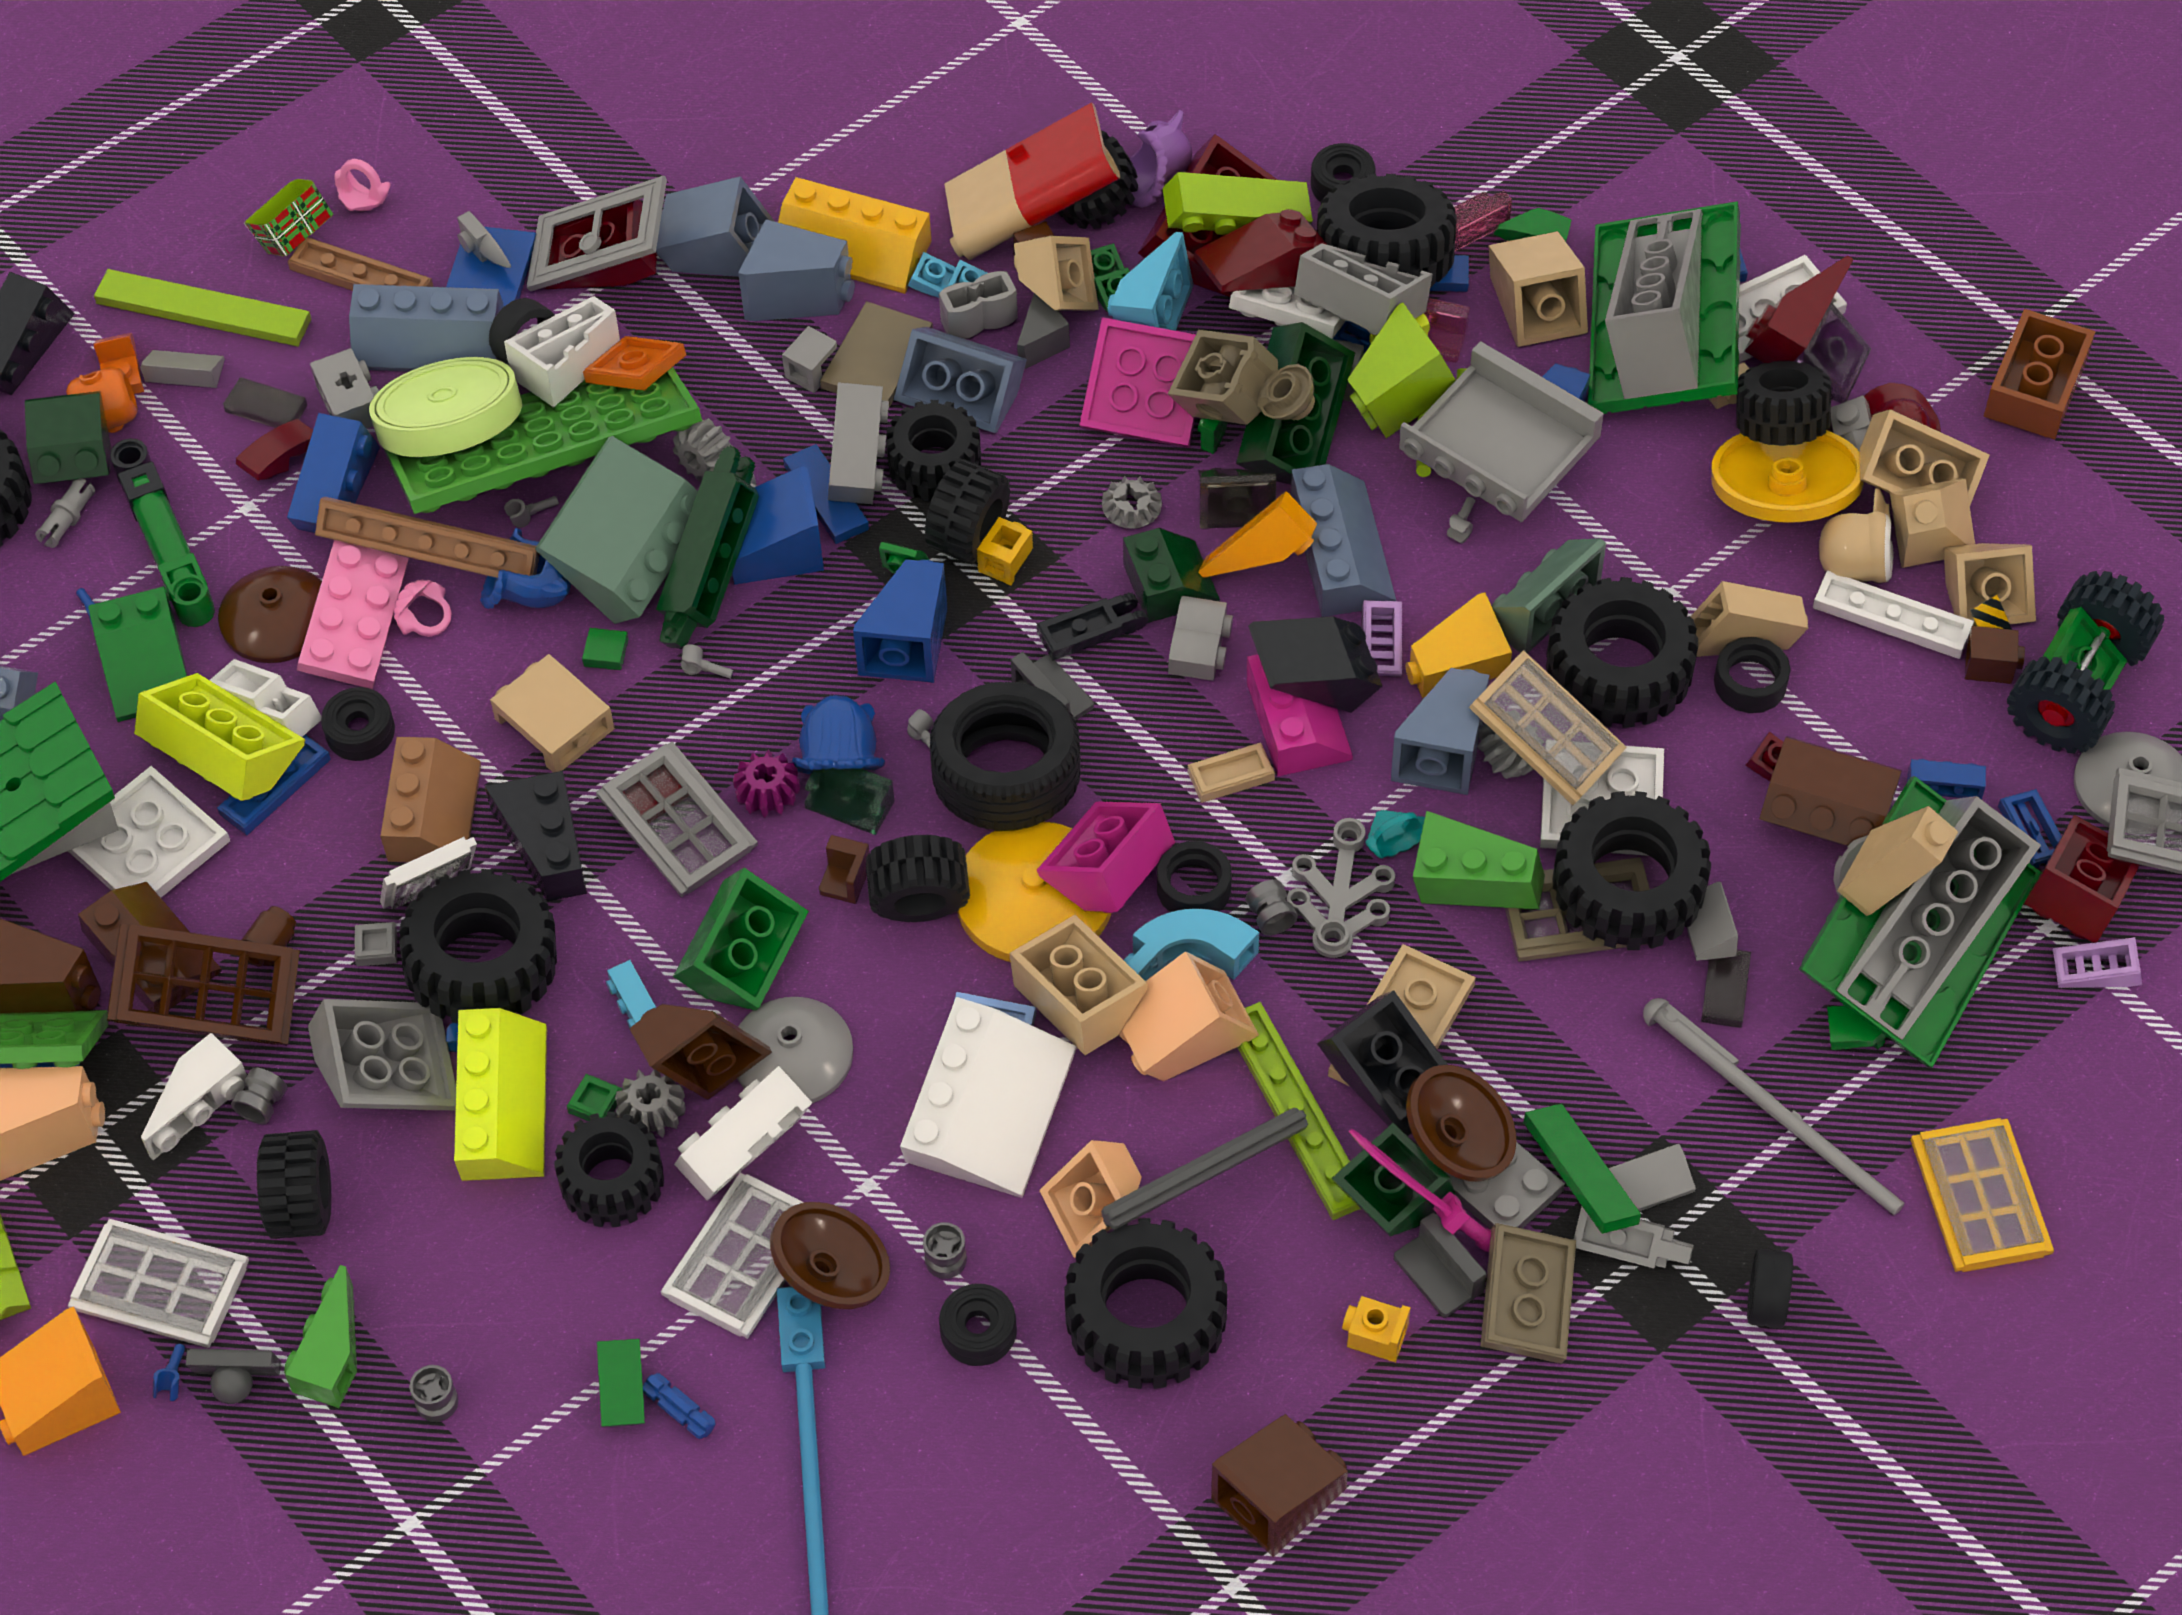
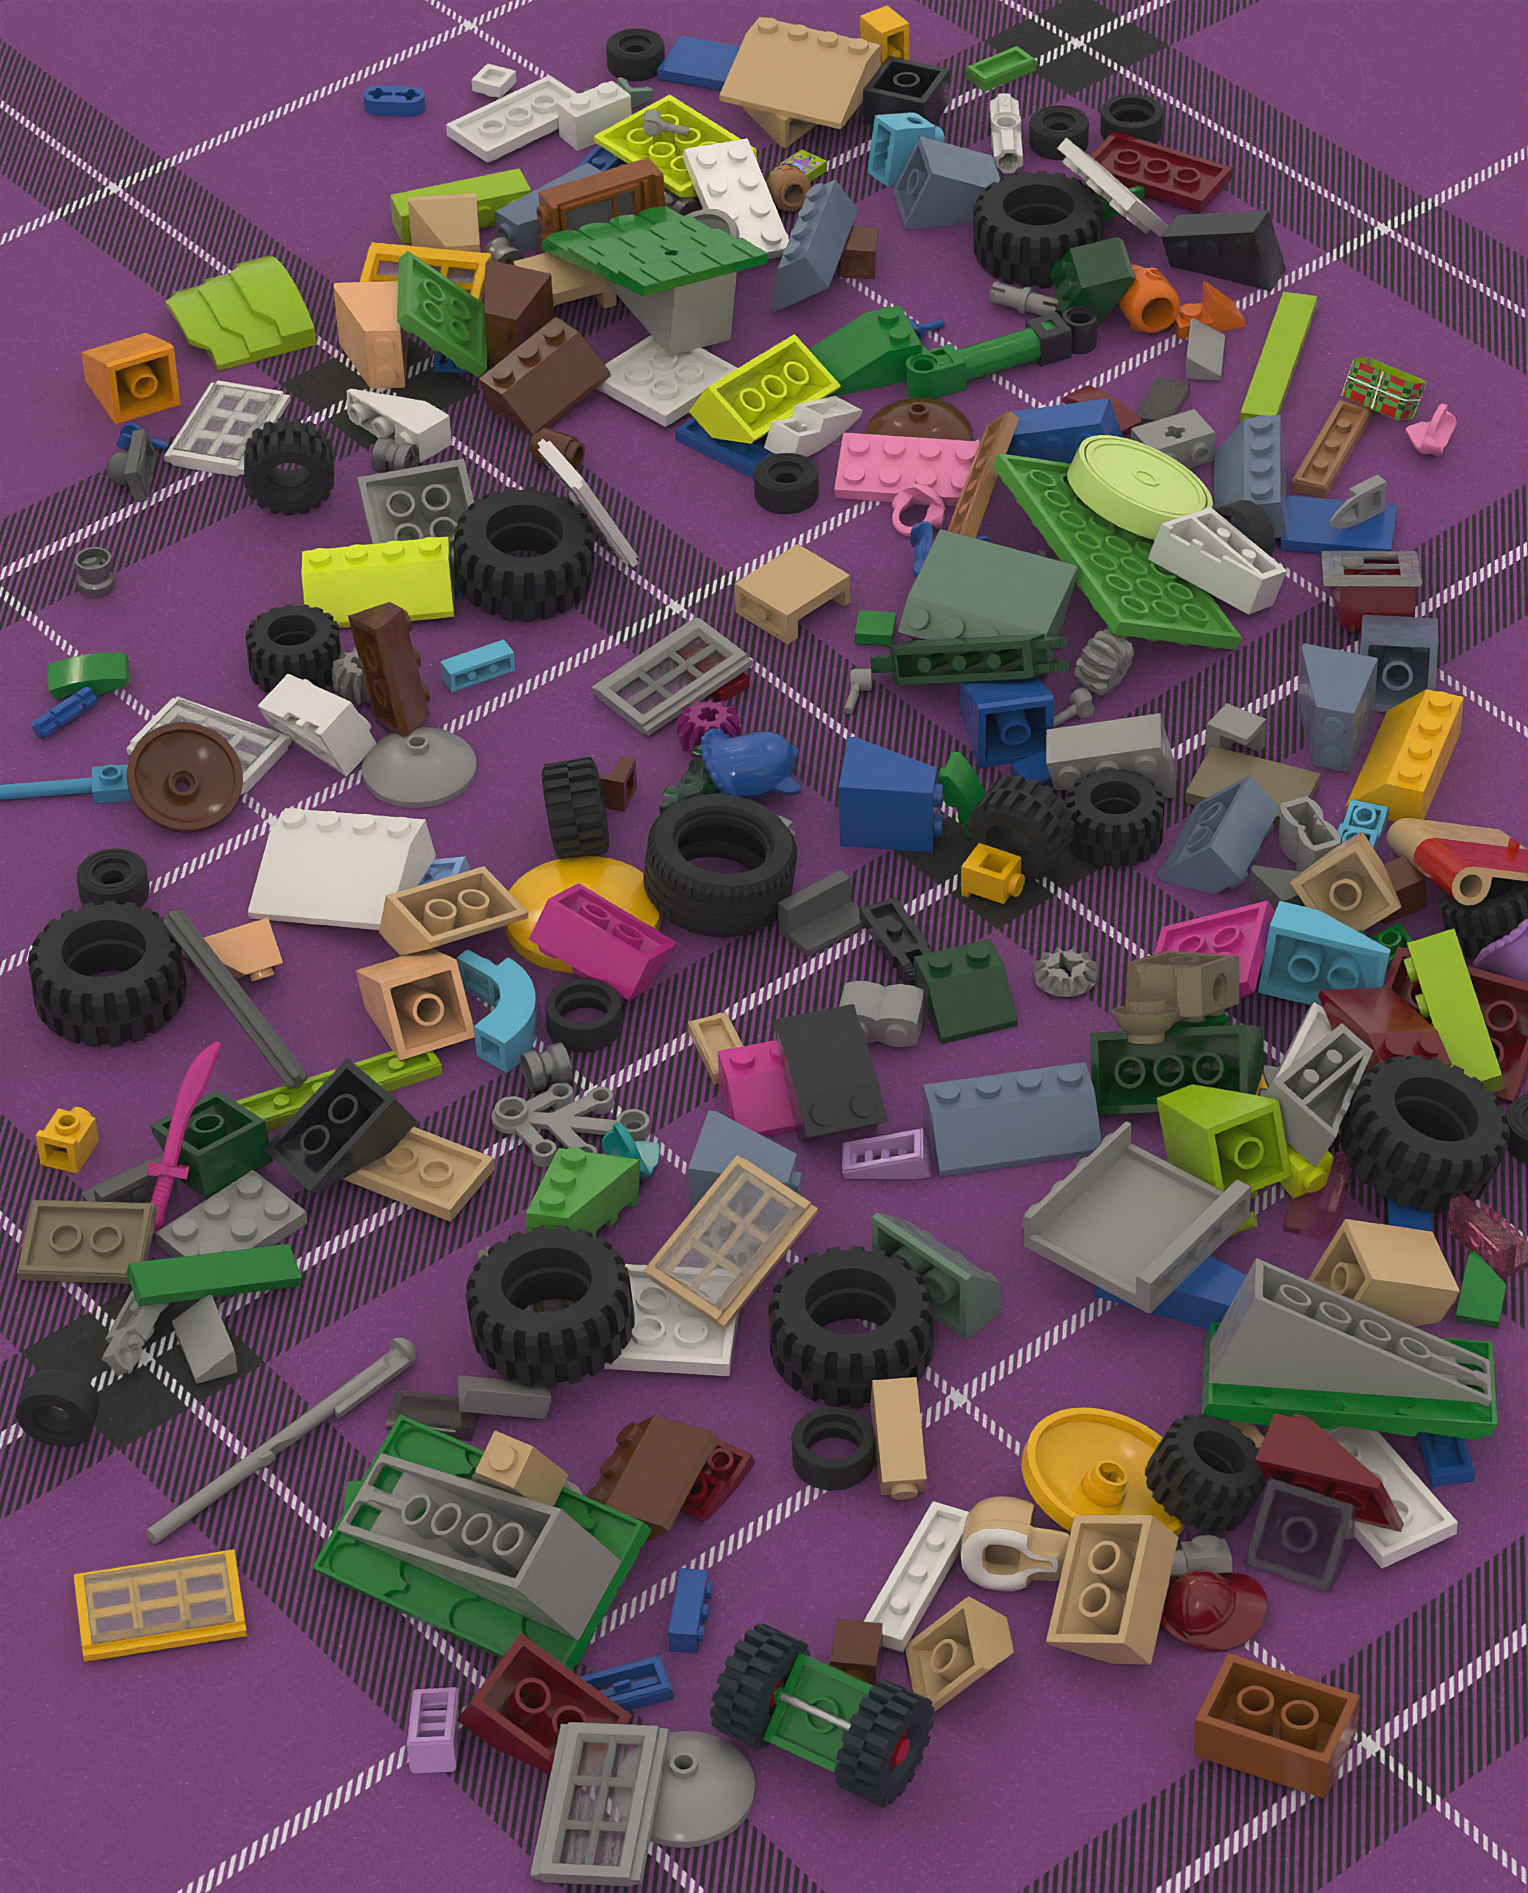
camera: 90 degrees right, 15 degrees down
(126, 973) = (483, 345): reddish brown piece -> none
(327, 1354) = (150, 514): bright green slope -> none
(428, 798) = (695, 526): medium nougat slope -> none
(542, 830) = (654, 594): black wedge -> none
(634, 363) = (1211, 609): orange tile -> none
(741, 942) = (527, 714): green slope -> none
(947, 1241) = (189, 857): flat silver wheel -> none
(1233, 496) = (1064, 1022): clear smoke slope -> none
(1264, 540) = (988, 1039): light orange slope -> none
(1461, 1123) = (252, 1140): reddish brown dish -> none
(1462, 641) = (853, 1194): yellow slope -> none
(1930, 520) = (1036, 1594): tan slope -> none
(1991, 614) = (909, 1663): sticker -> none

